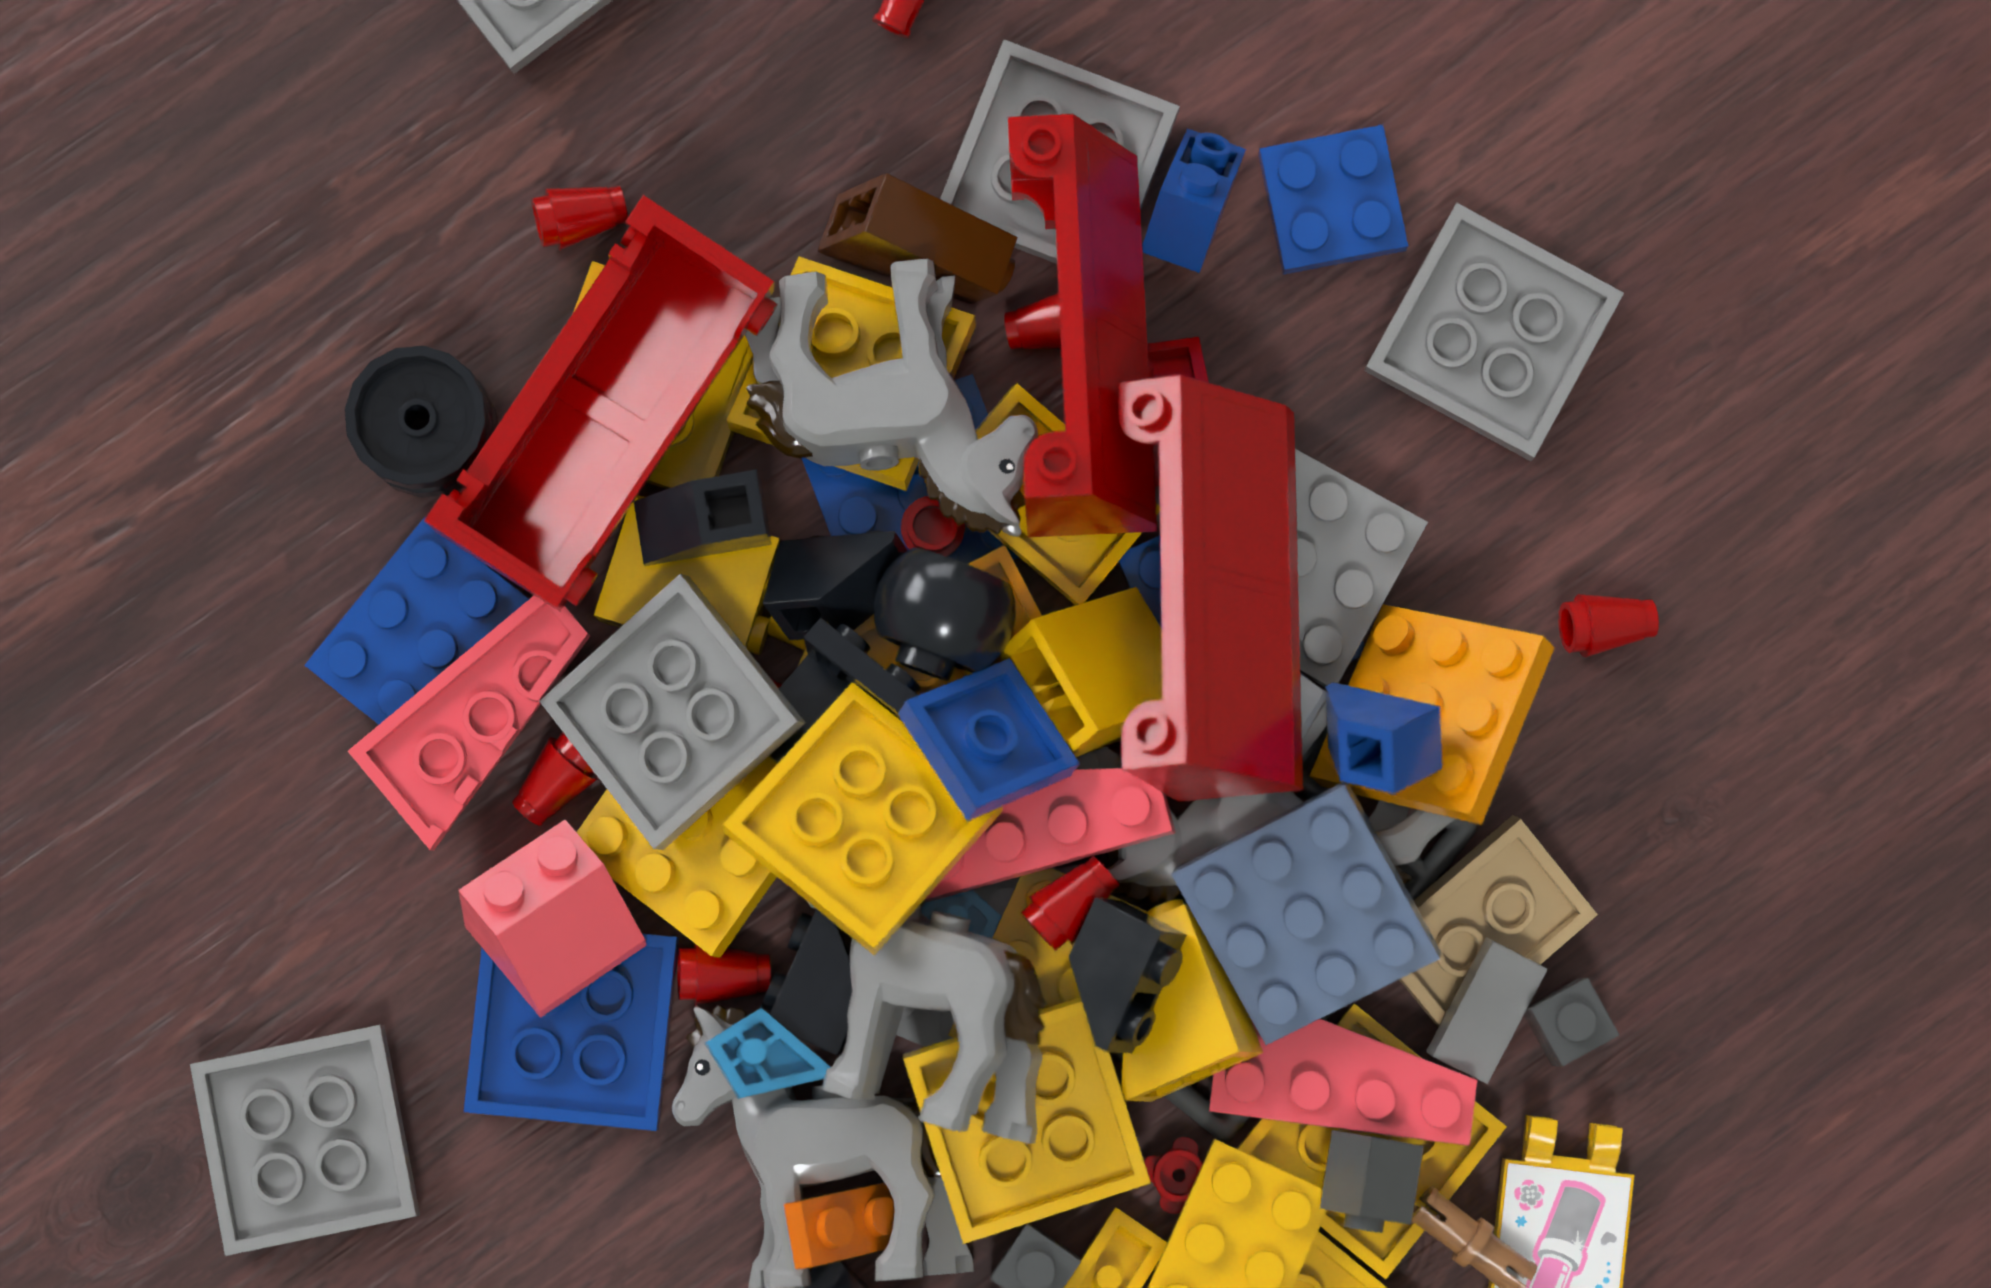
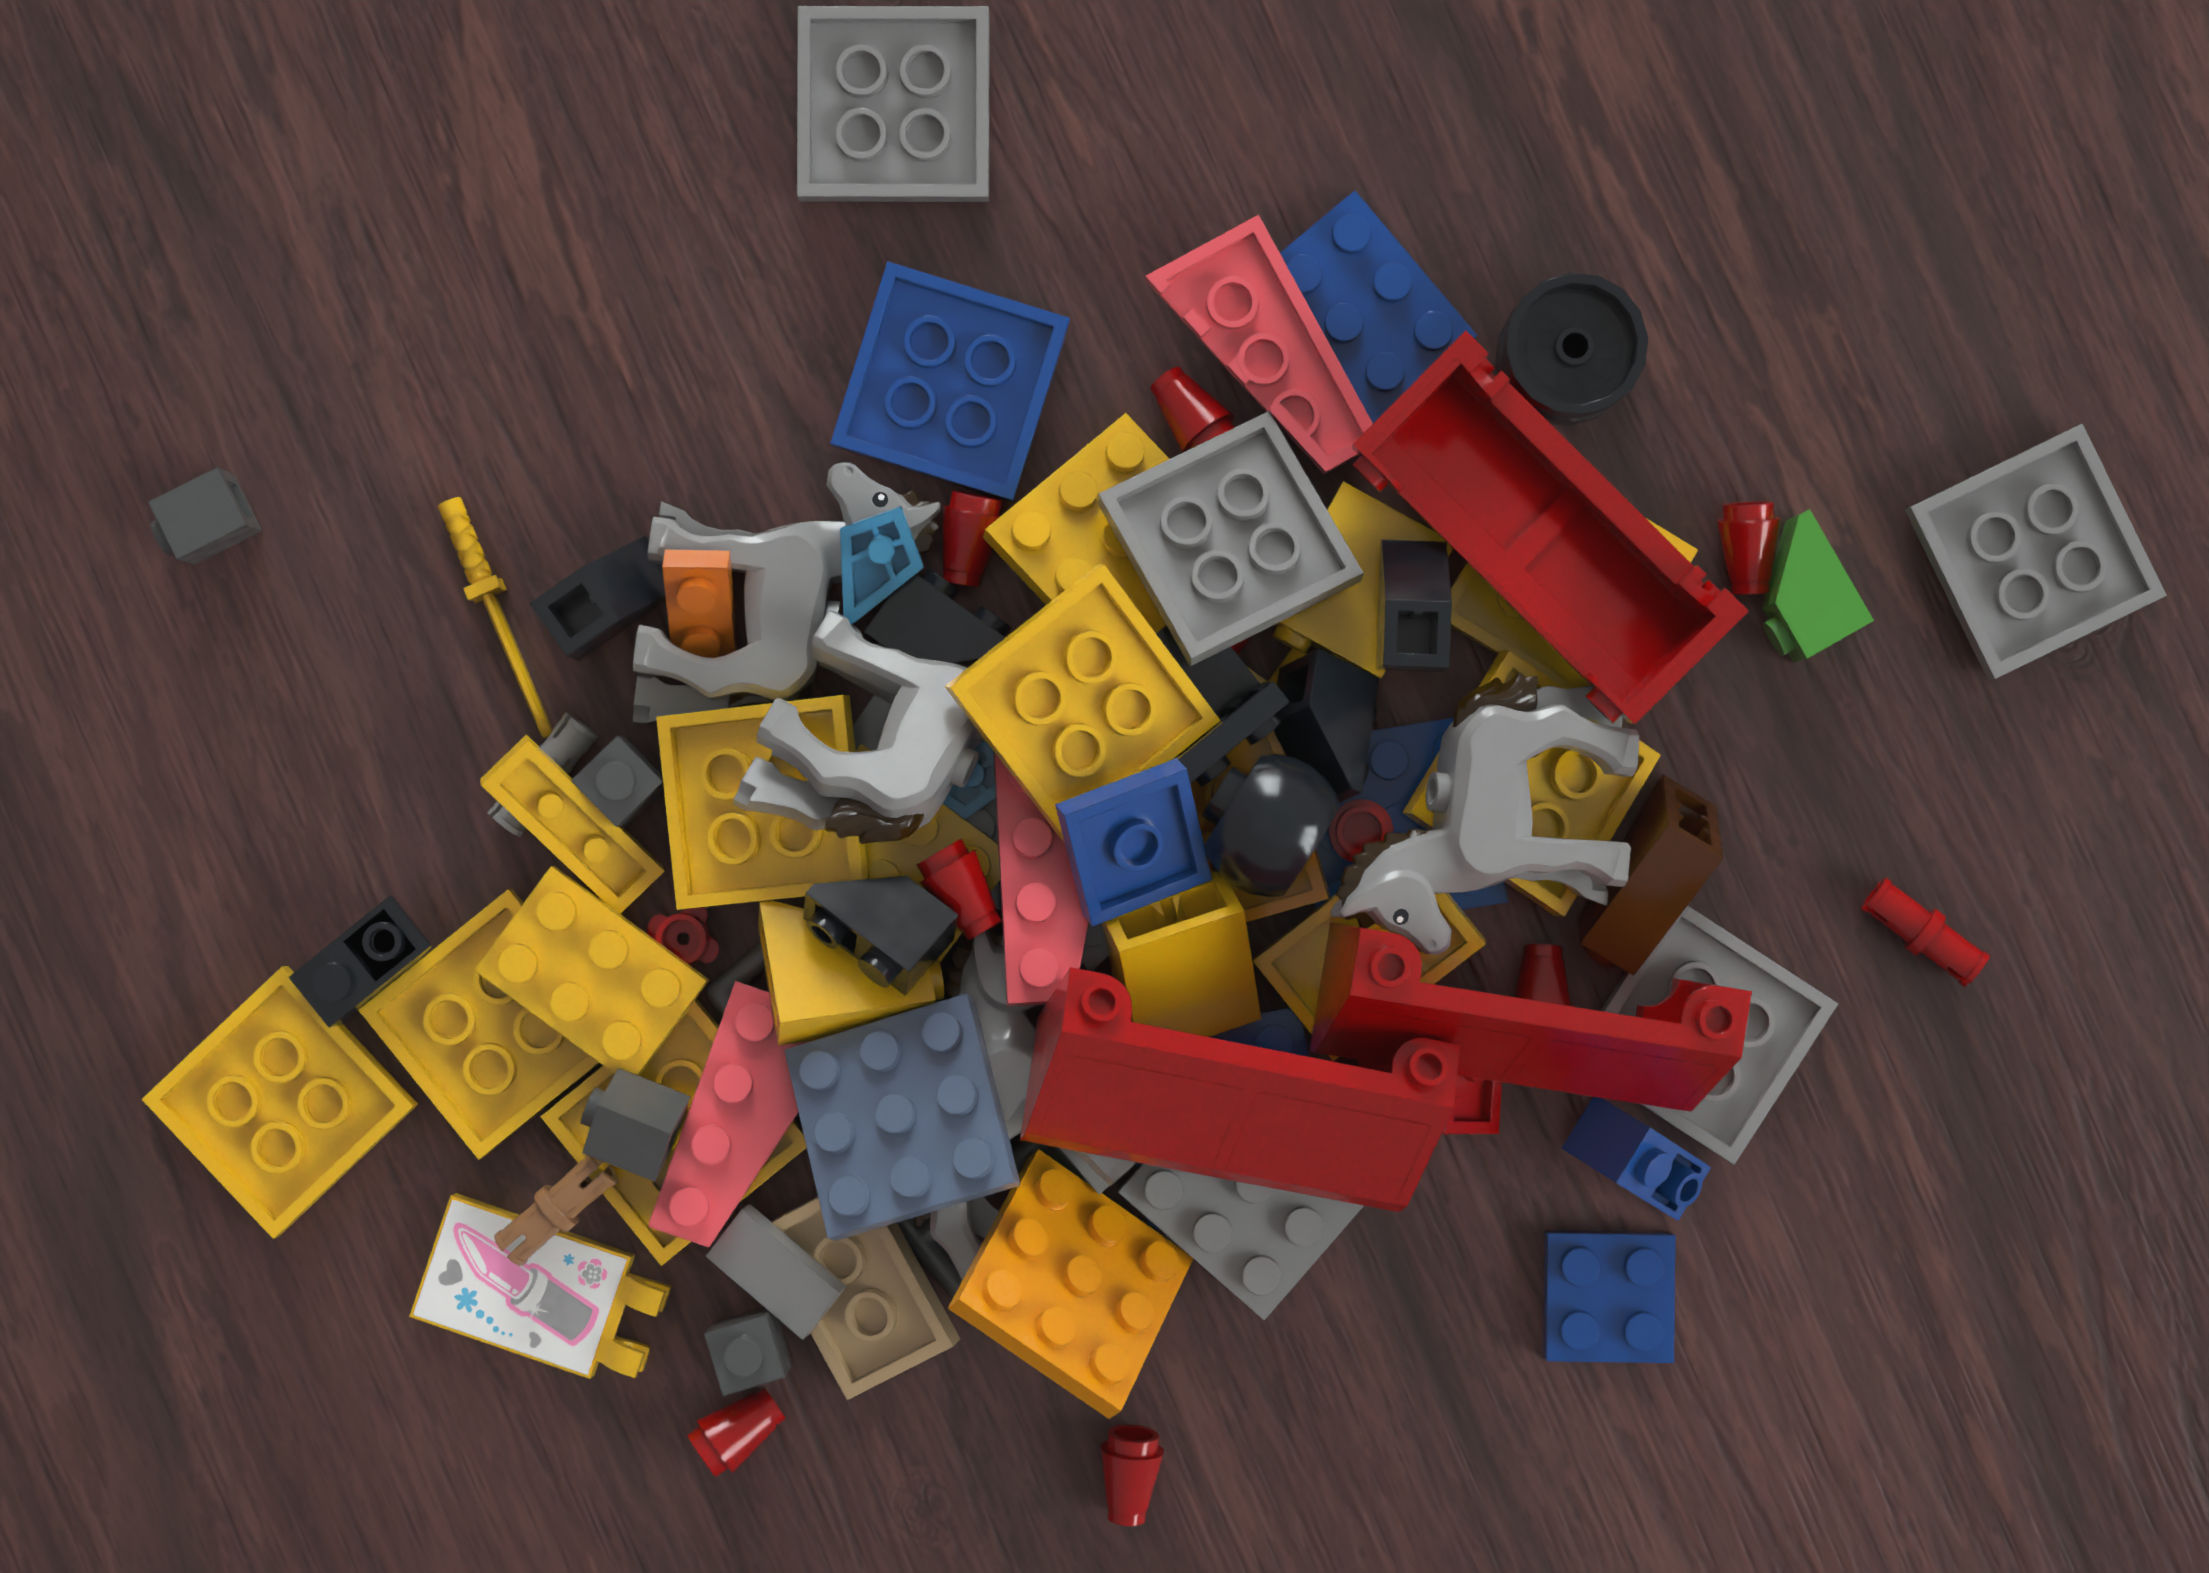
camera: 90 degrees right, 5 degrees up
(550, 918) = (1053, 381): coral slope -> none
(613, 146) = (1809, 593): none -> bright green slope
(1382, 738) = (1052, 1228): blue slope -> none
(1494, 332) = (1442, 1427): light grey plate -> none
(1653, 1018) = (735, 1431): none -> red cone

